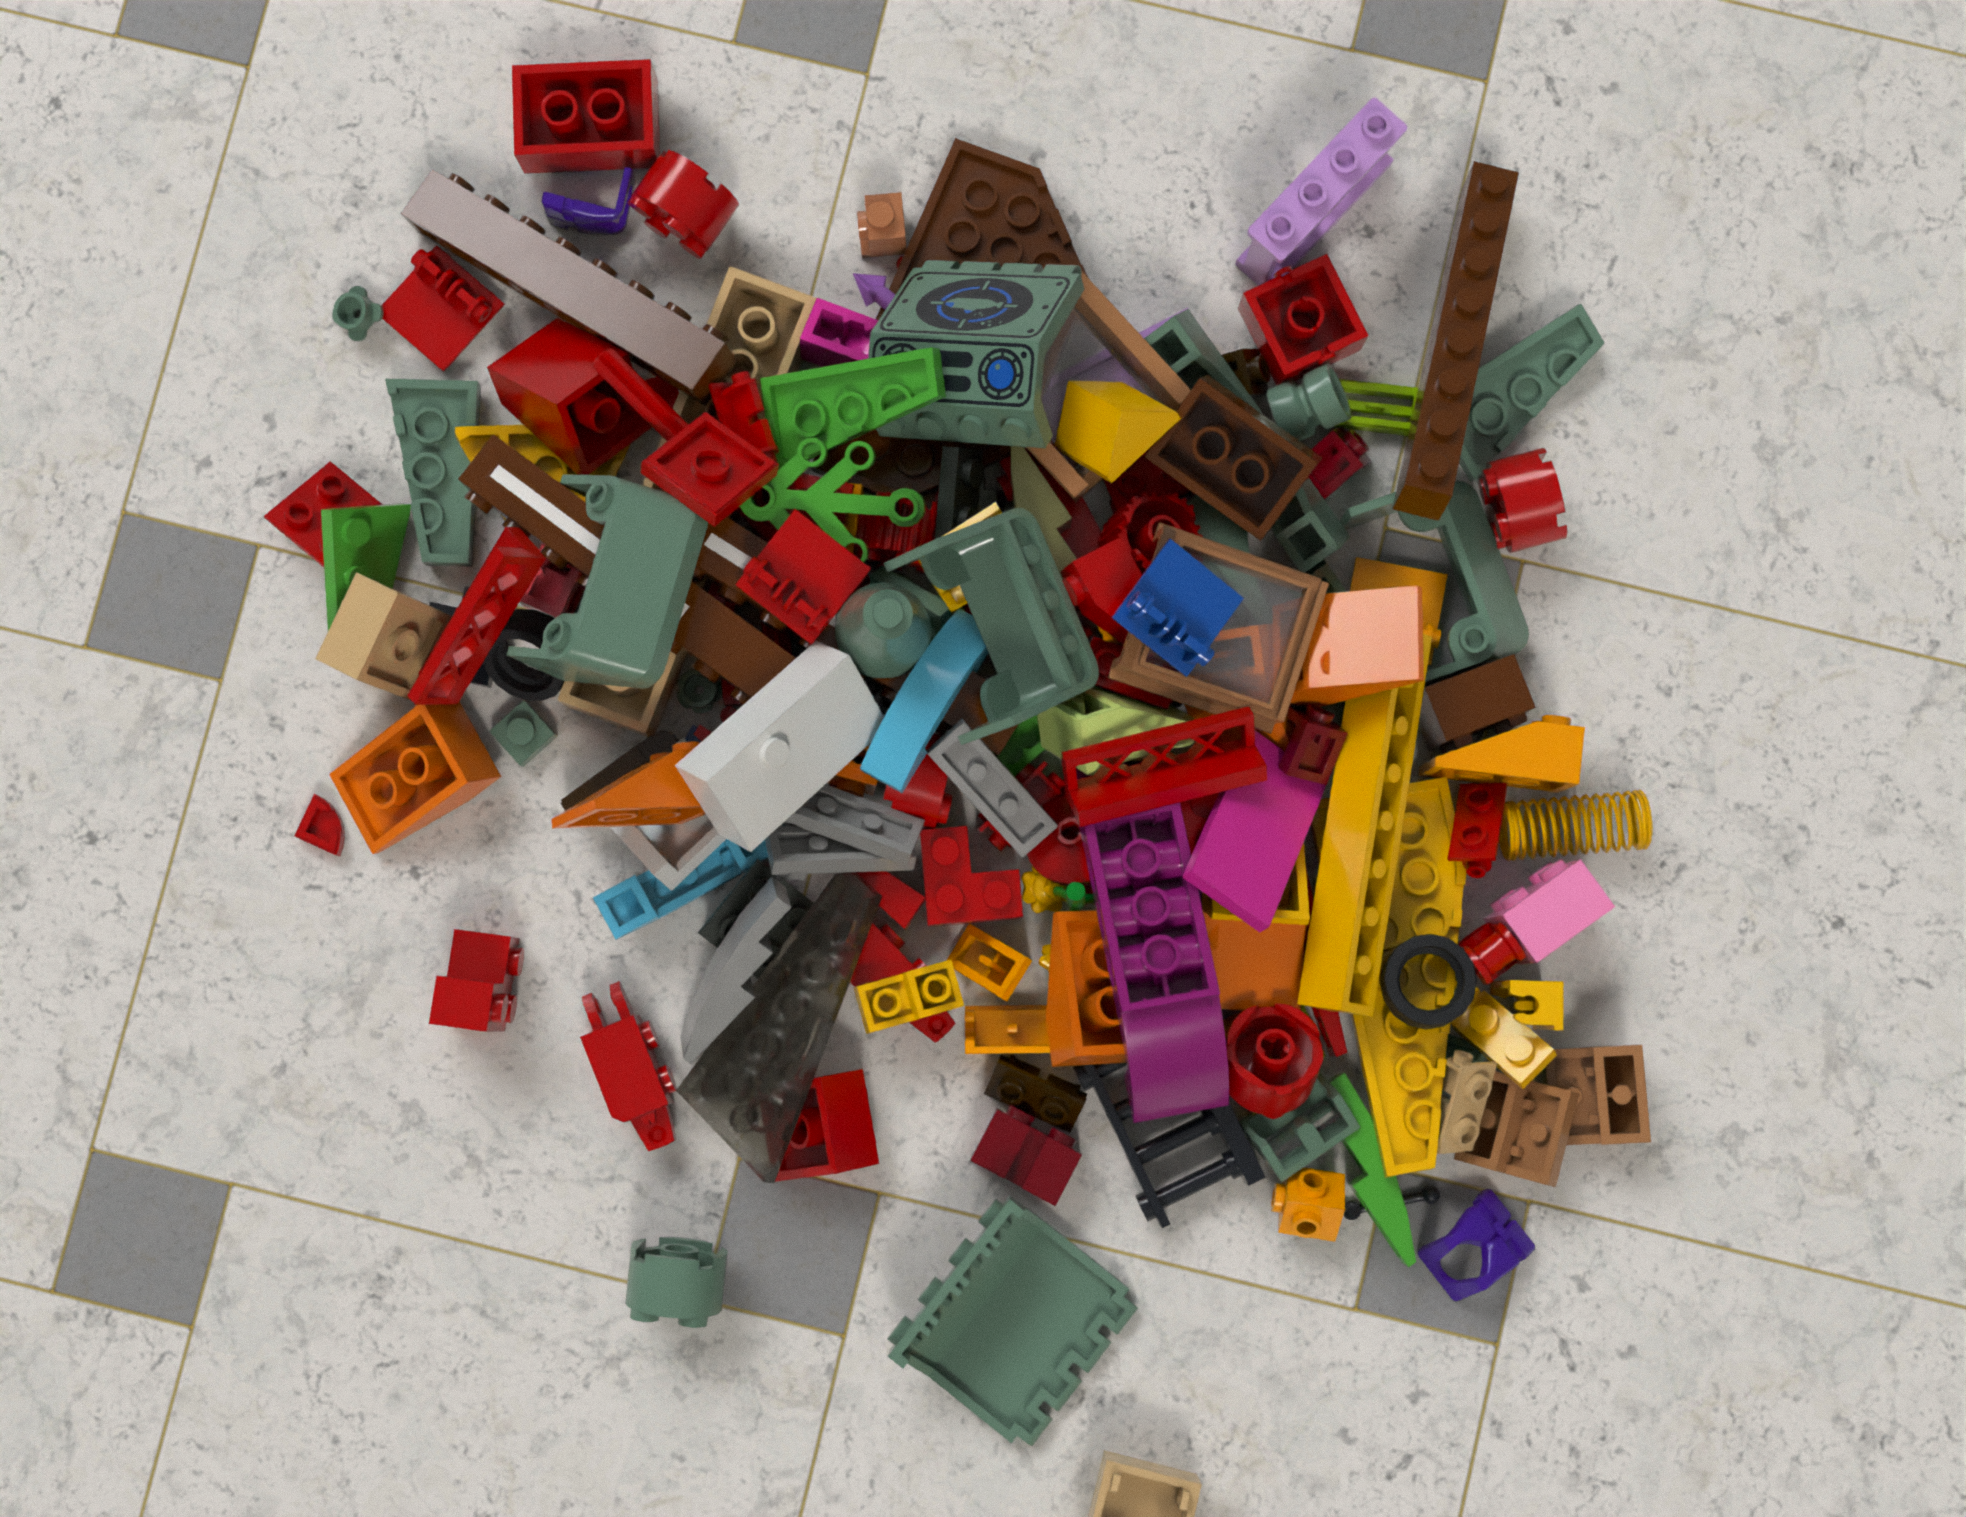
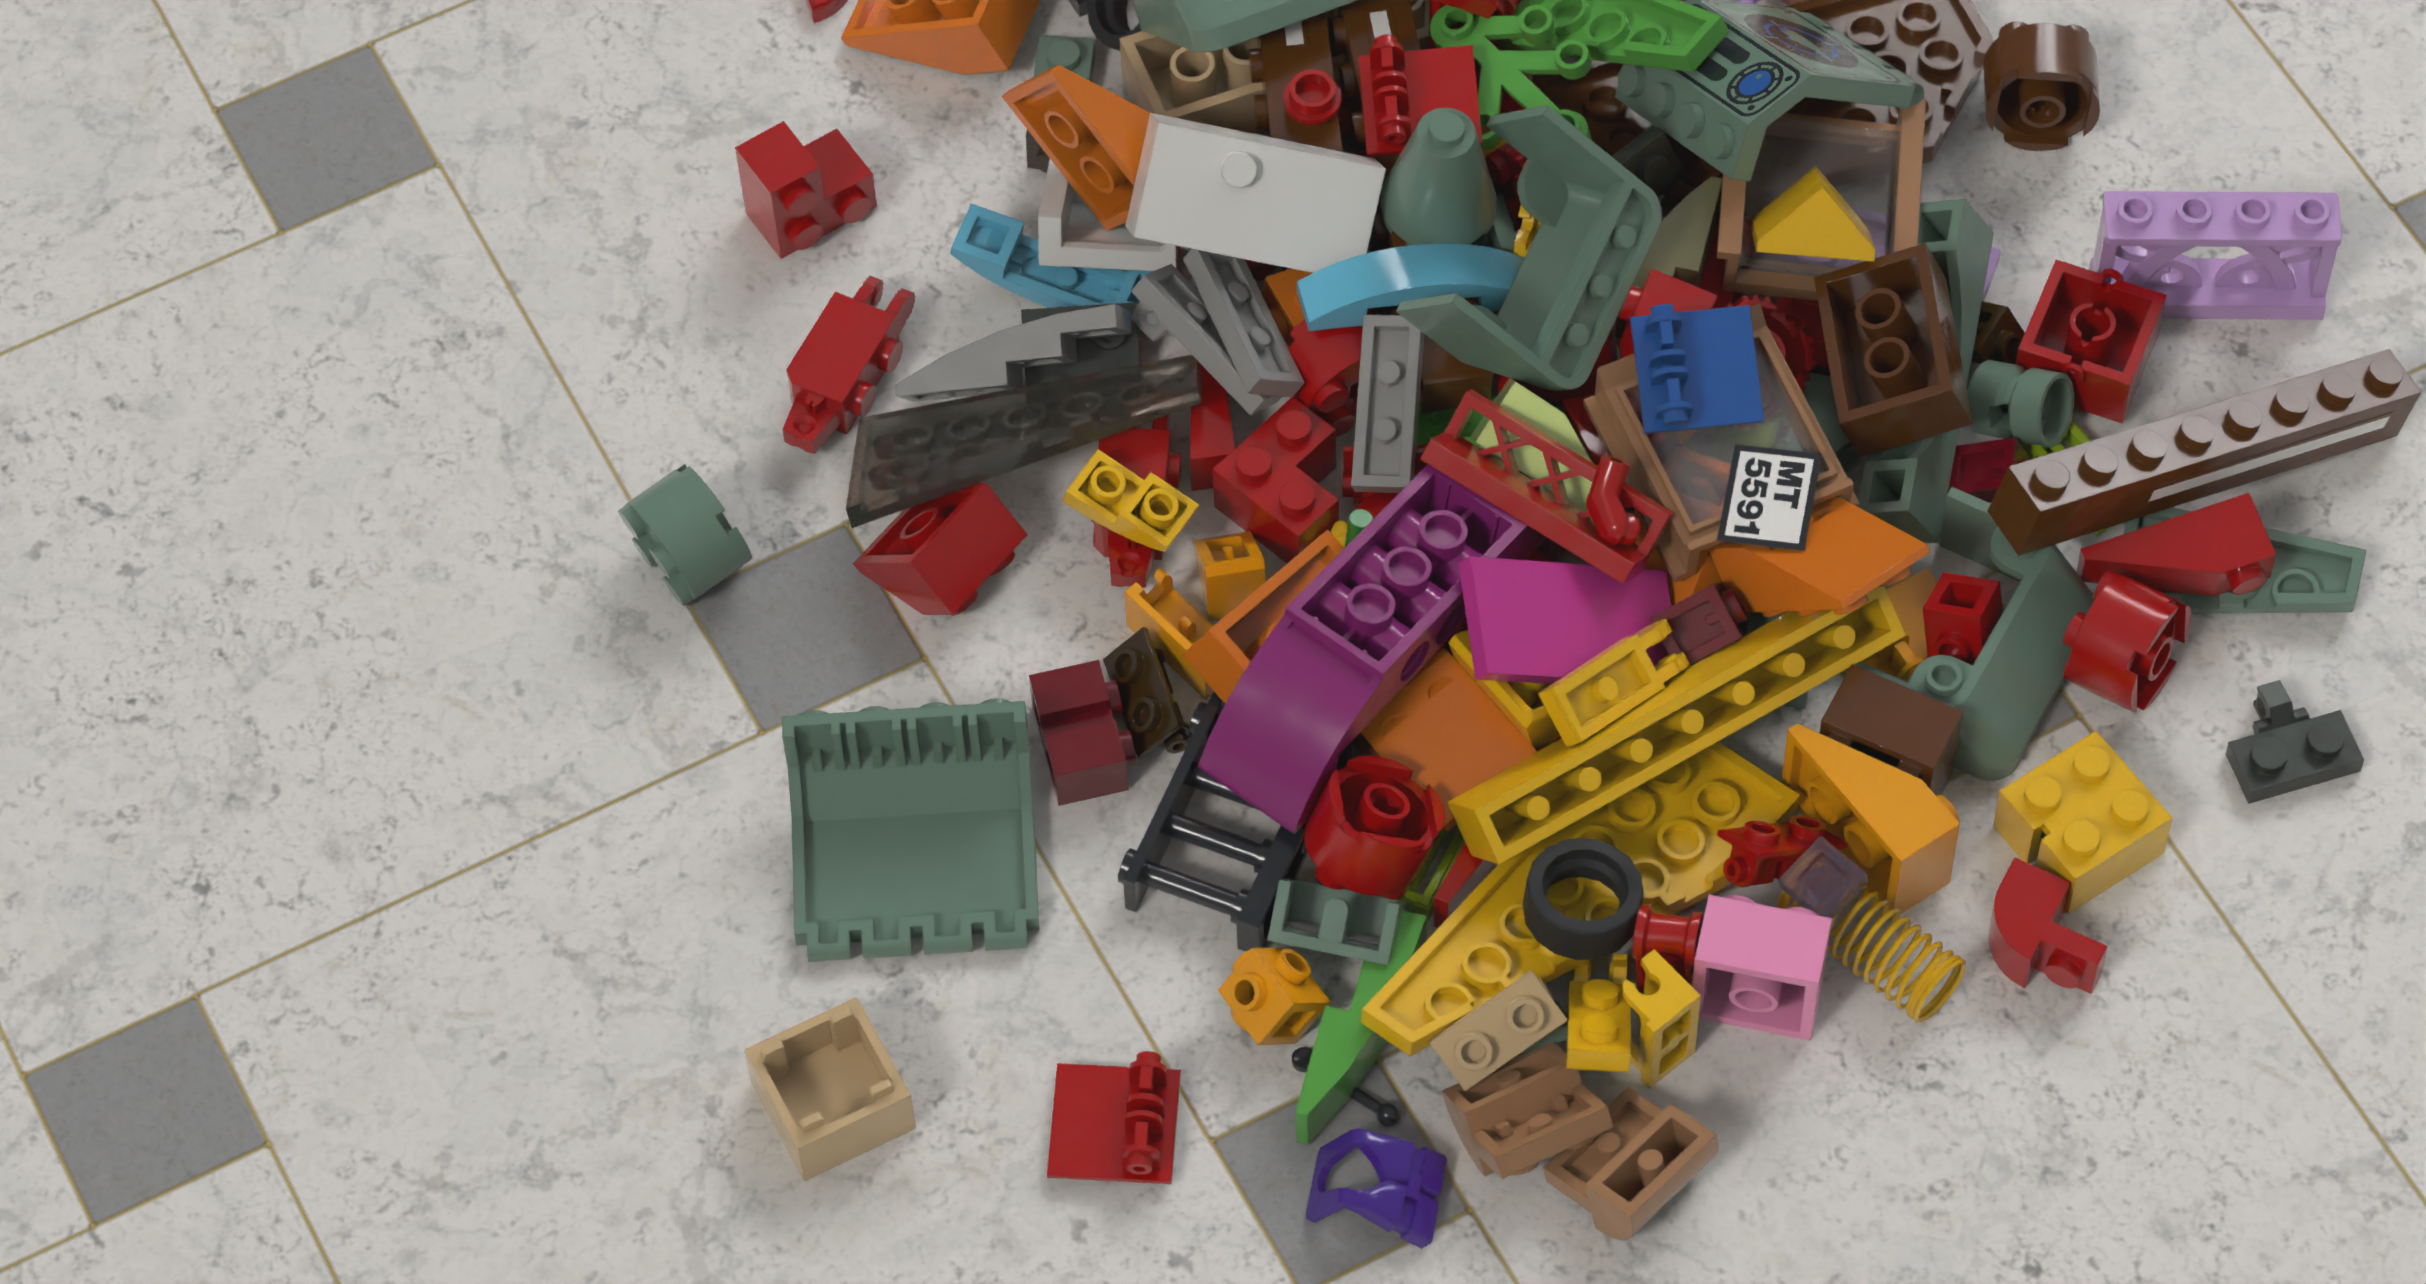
camera: 50 degrees right, 25 degrees down
(743, 643) = (1312, 97): none -> red plate
(1101, 173) = (2041, 84): none -> reddish brown brick
(1223, 751) = (1606, 507): none -> red arm
(1296, 643) = (1769, 497): none -> sticker
(1301, 1361) = (1115, 1121): none -> red hinge
(1319, 841) = (1610, 684): none -> yellow hinge
(1440, 585) = (1961, 616): none -> red brick
(1509, 397) = (2192, 553): none -> red slope
(1543, 835) = (1823, 879): none -> plate
(1610, 630) = (2094, 817): none -> yellow piece
(1640, 732) = (2028, 933): none -> red brick
(1654, 467) = (2291, 748): none -> pearl dark grey hinge

